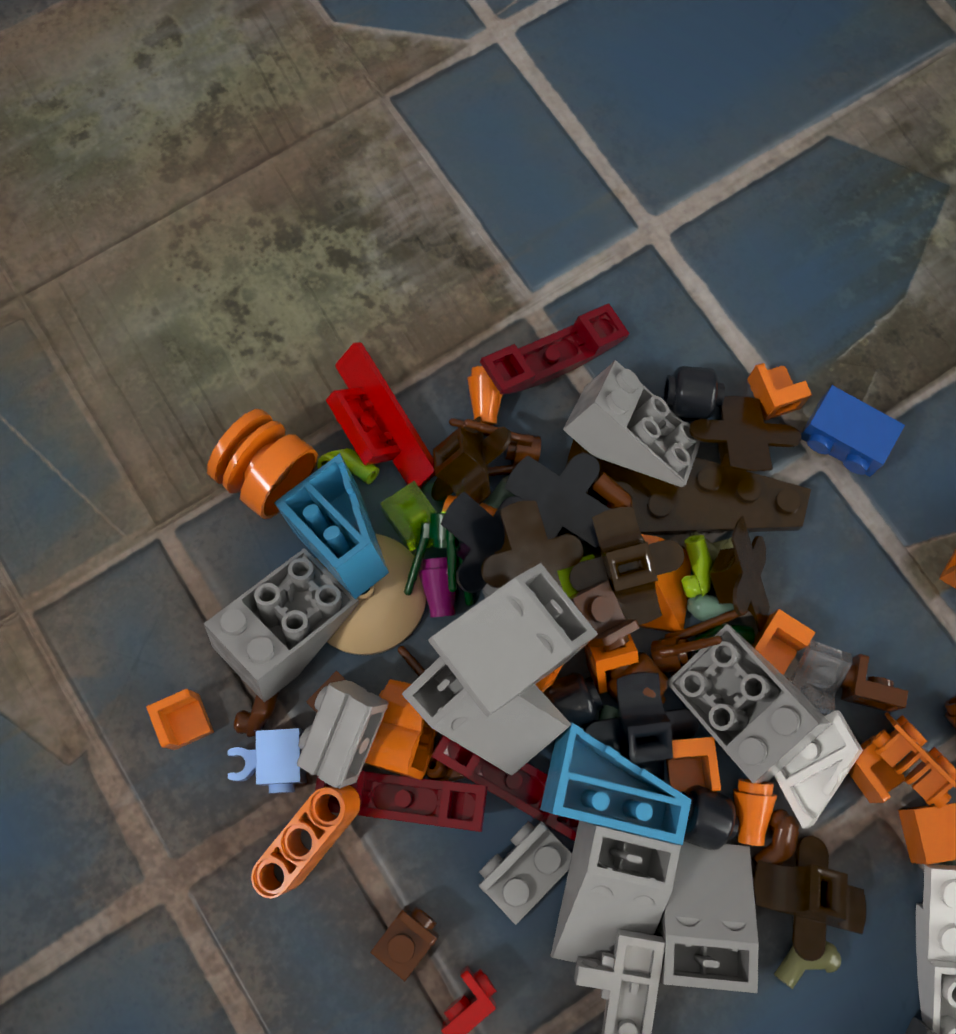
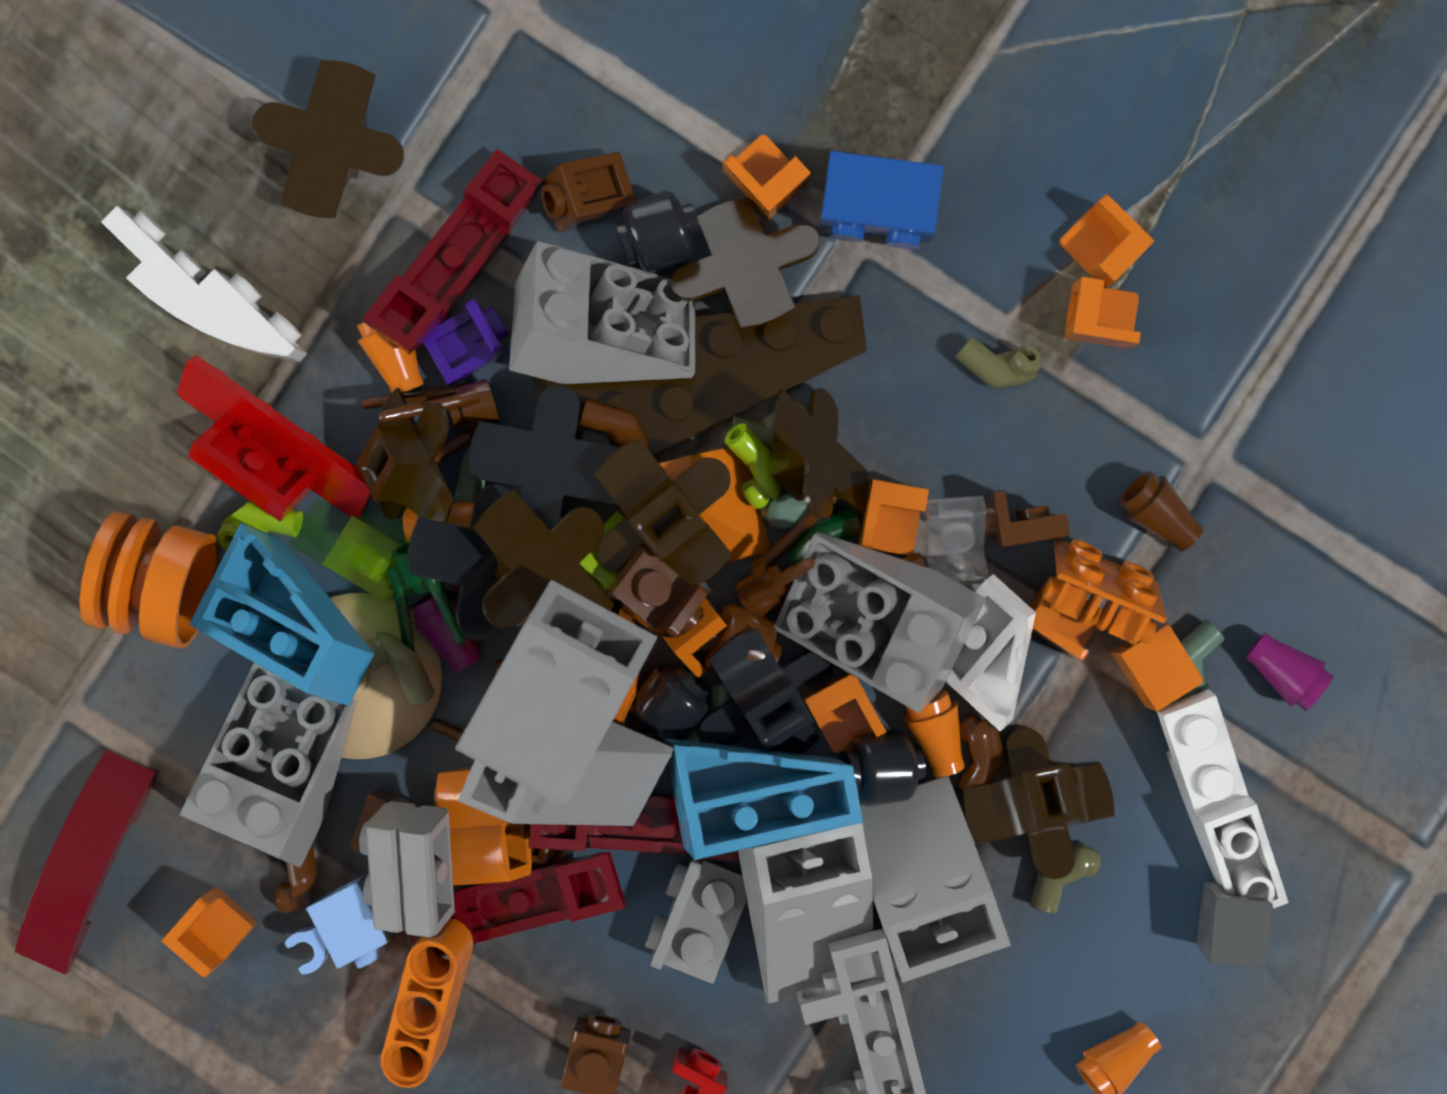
camera: 25 degrees left, 15 degrees up
(117, 633) = (82, 859): none -> dark red slope
(381, 315) = (215, 305): none -> white slope
(404, 594) = (405, 664): none -> olive arm
(506, 252) = (328, 139): none -> dark brown piece
(538, 408) = (467, 342): none -> dark purple bracket
(655, 349) = (586, 190): none -> reddish brown bracket
(891, 579) = (1000, 369): none -> olive arm

